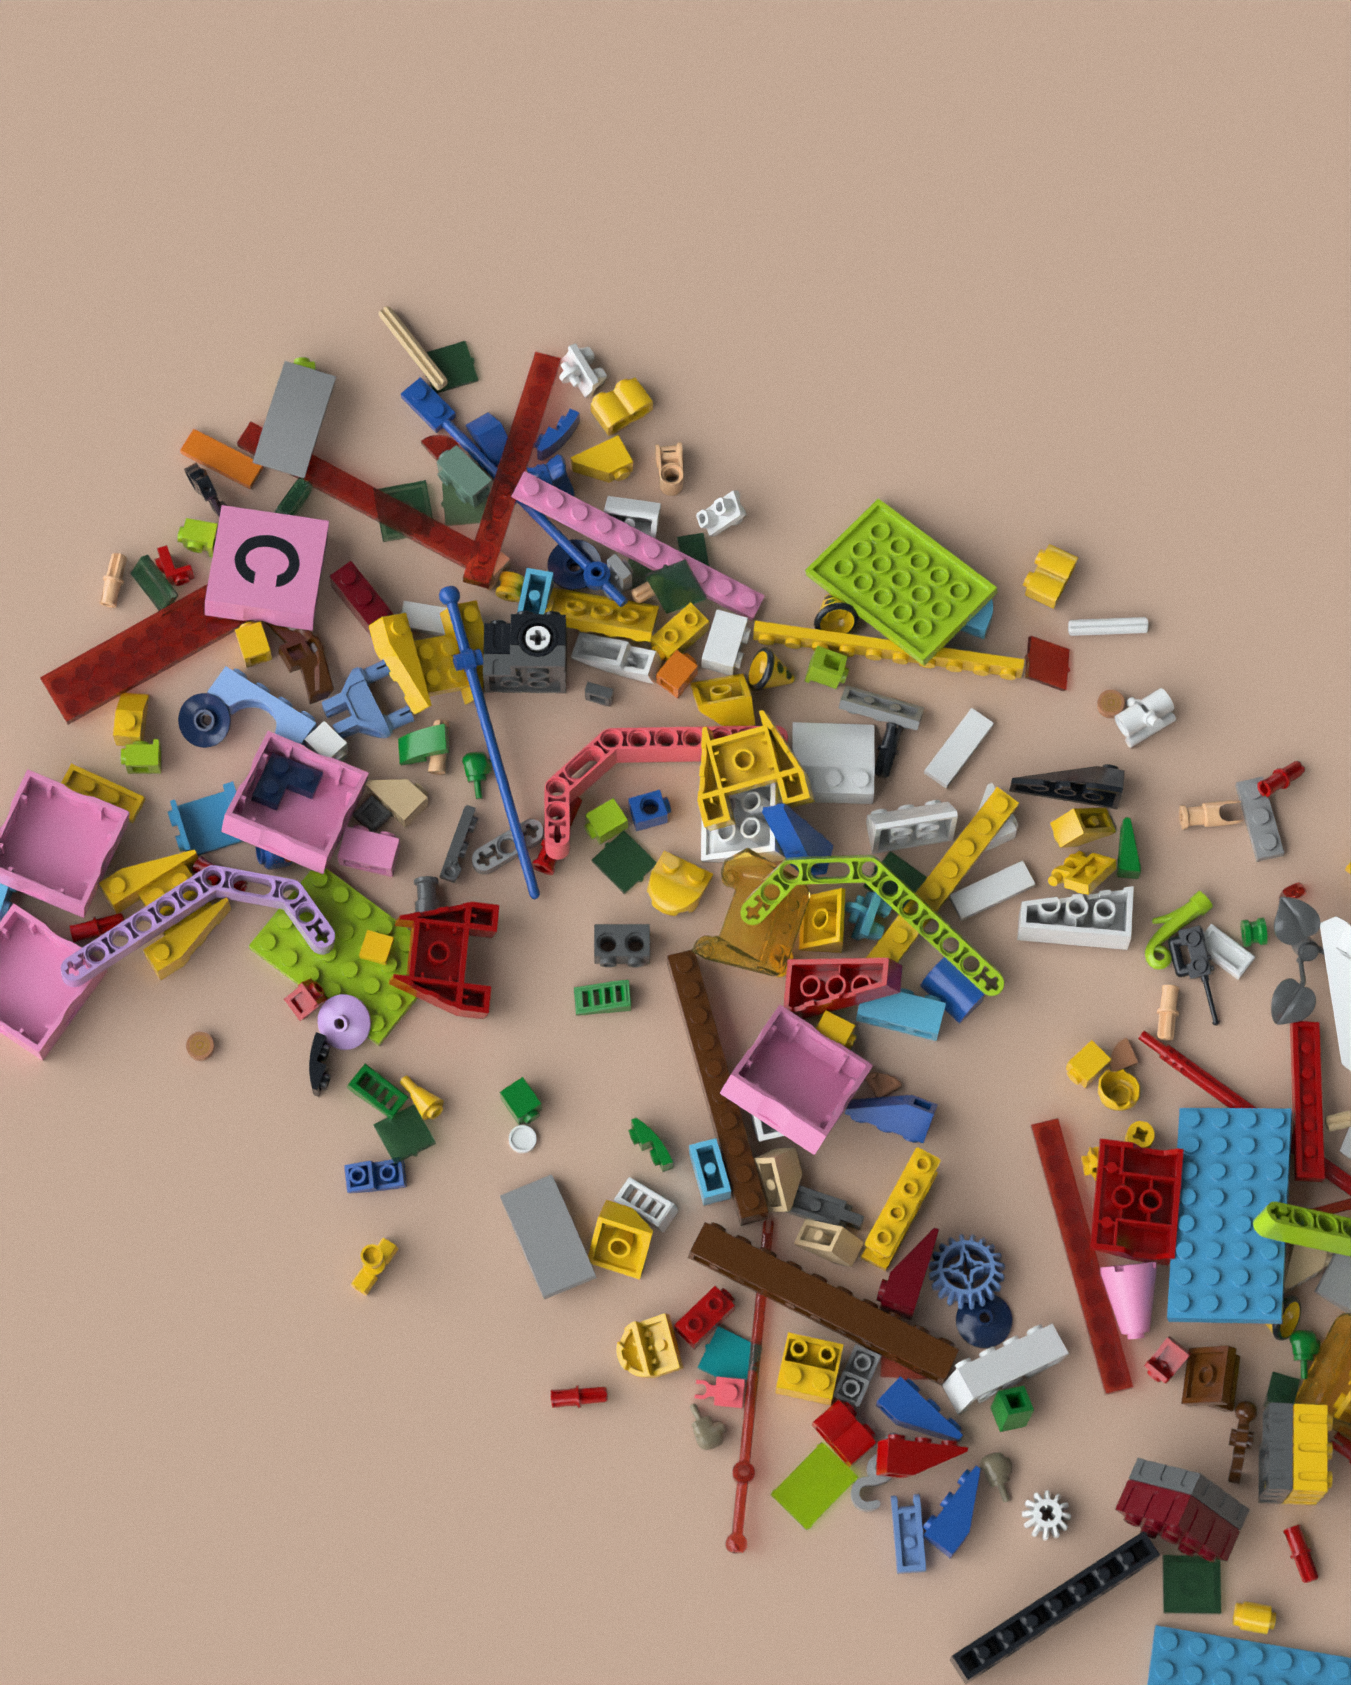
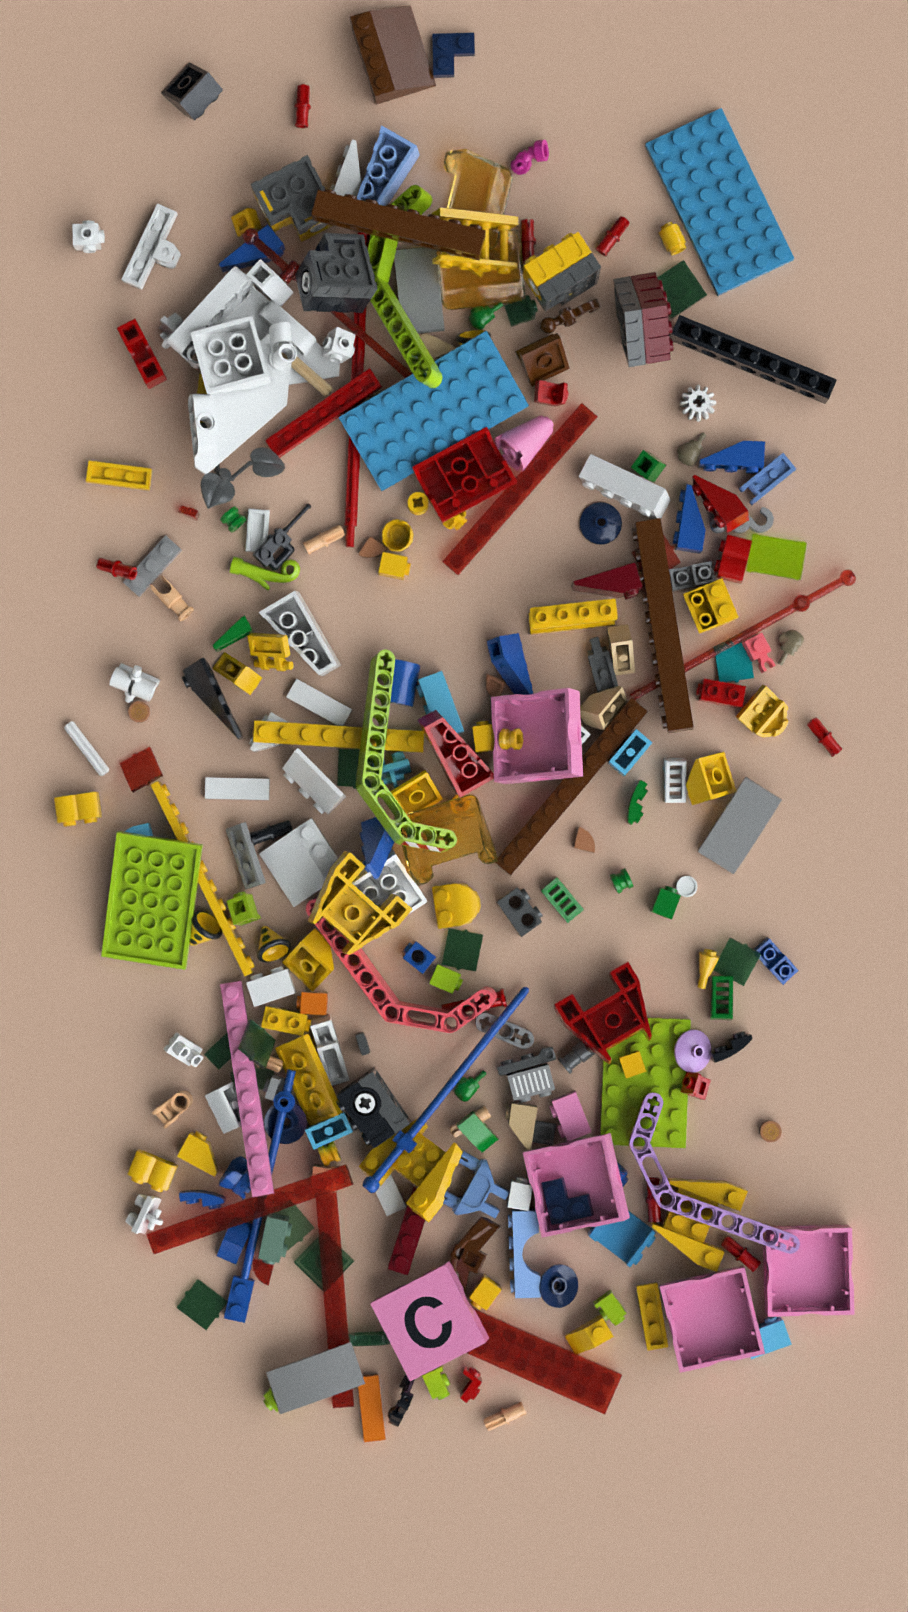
camera: 125 degrees left, 15 degrees up
(154, 583) = (489, 1387): clear green tile -> none
(374, 1260) = (833, 920): yellow bar -> none
(413, 348) = (206, 1338): tan axle -> none
(433, 835) = (531, 1082): none -> light grey brick
(578, 1071) = (621, 880): none -> green wheel
(648, 1064) = (584, 841): none -> nougat tile
(813, 1055) = (511, 739): none -> yellow wheel
(956, 1274) = (568, 538): medium blue gear -> none

